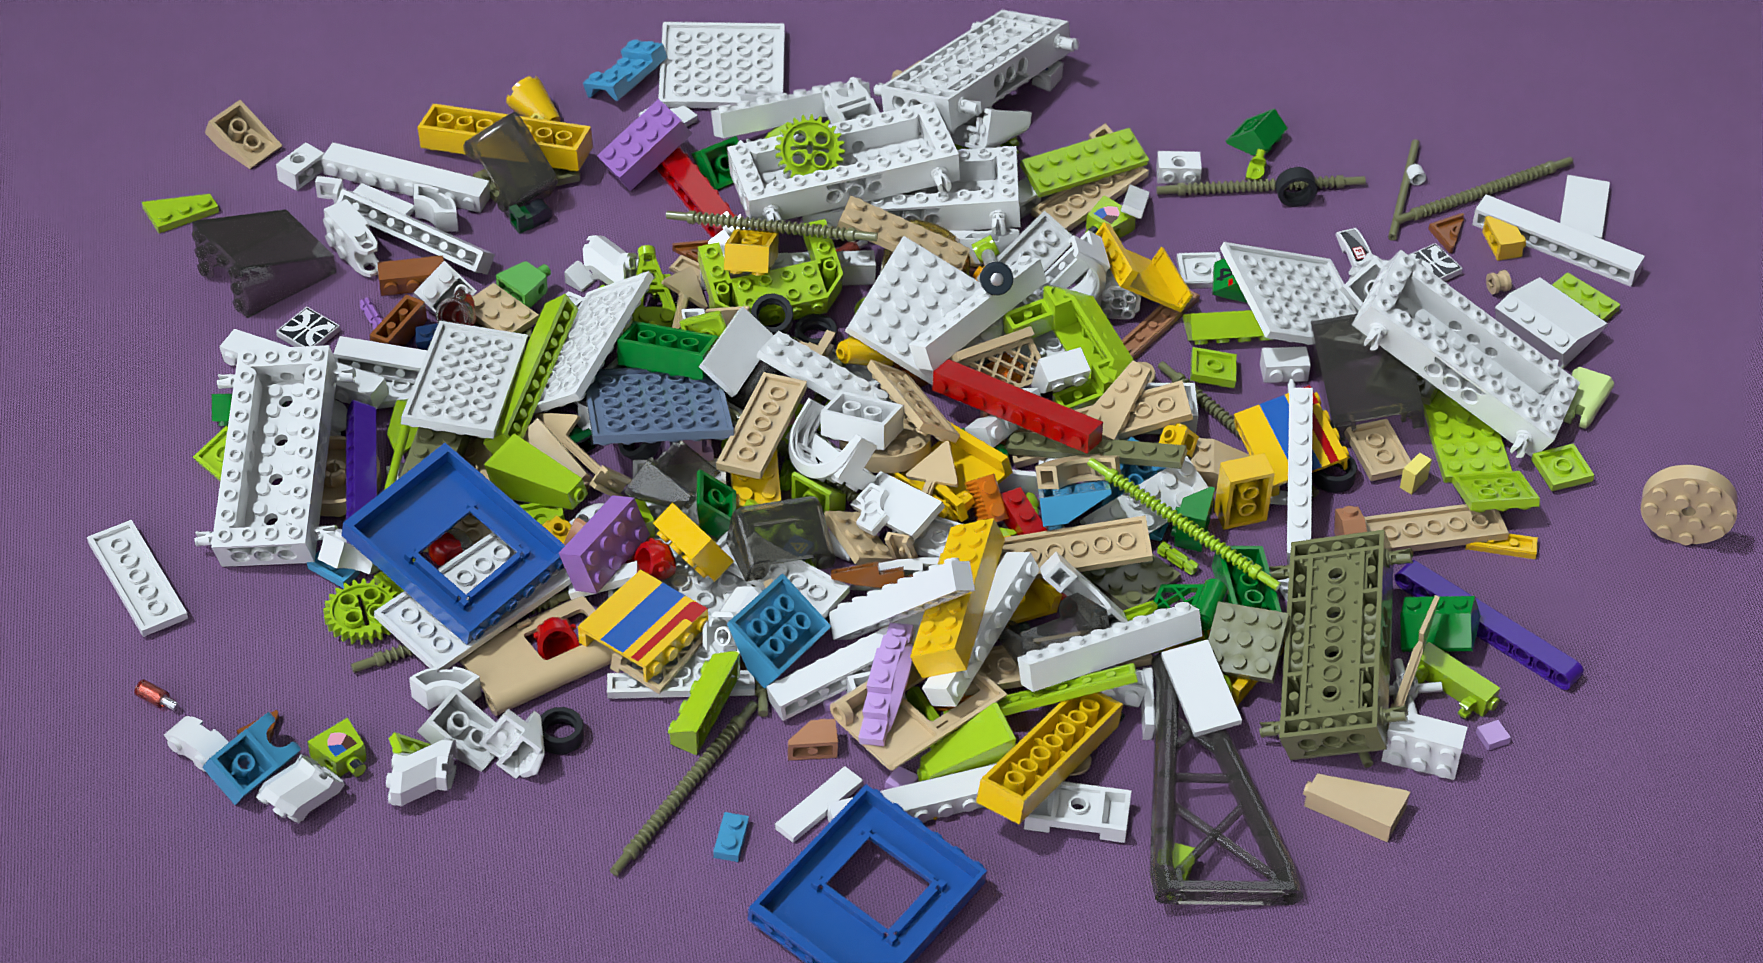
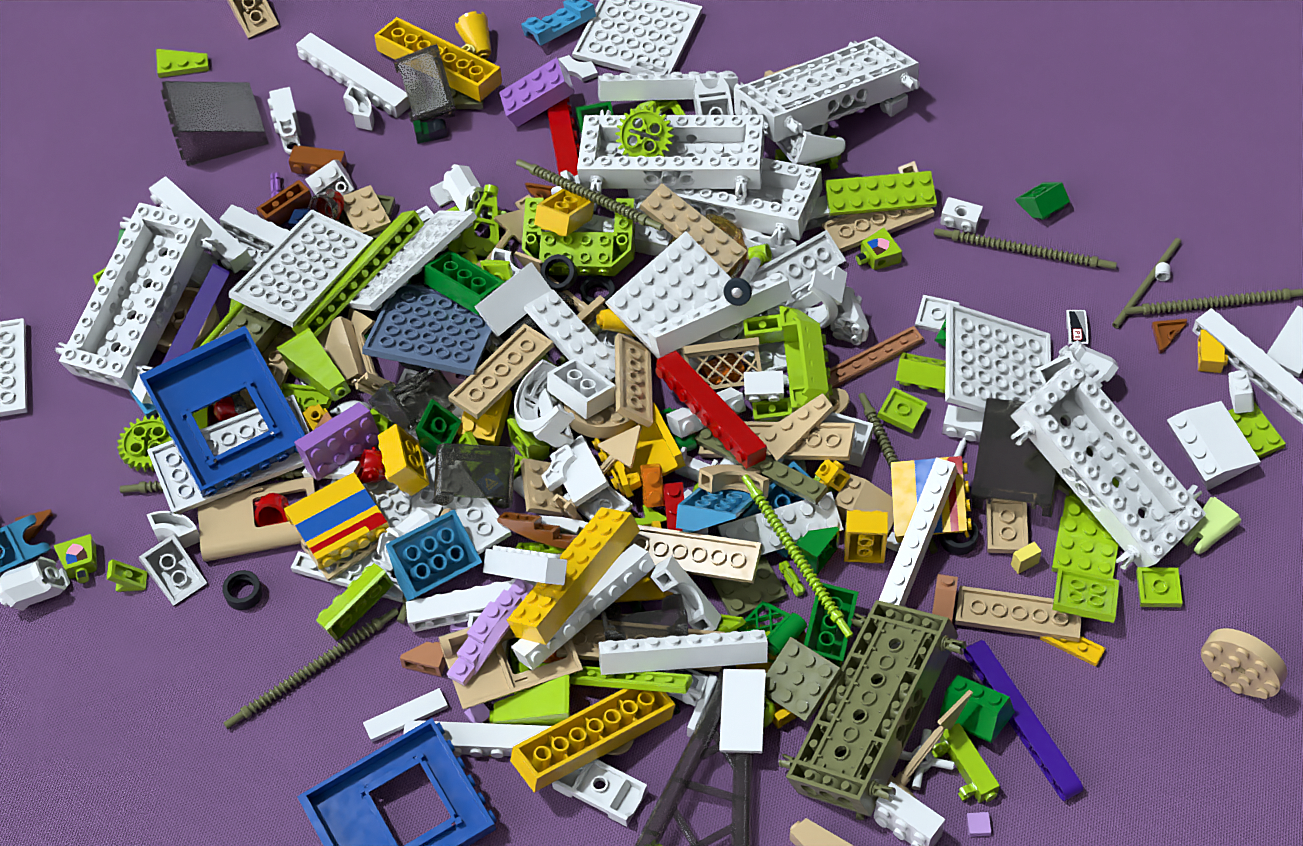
camera: 25 degrees right, 10 degrees up
(300, 166) = (280, 46): white brick -> none
(308, 329) = (223, 189): tile -> none
(329, 188) = (294, 71): white bracket -> none
(385, 199) = (326, 91): white tile -> none
(420, 233) = (336, 125): white brick -> none
(422, 772) = (122, 597): white brick -> none
(516, 744) = (200, 595): white piece -> none
(525, 282) = (393, 191): bright green torso -> none
(731, 837) = (326, 722): dark azure plate -> none
(1135, 201) = (907, 239): white tile -> none
(1149, 278) = (877, 308): yellow panel -> none
(1256, 166) = (1027, 231): lime piece -> none
(1293, 175) = (1046, 267): black tyre -> none
(1438, 262) = (1136, 362): tile -> none
(1498, 282) = (1186, 393): tan wheel -> none
(1555, 264) = (1241, 391): none -> white brick

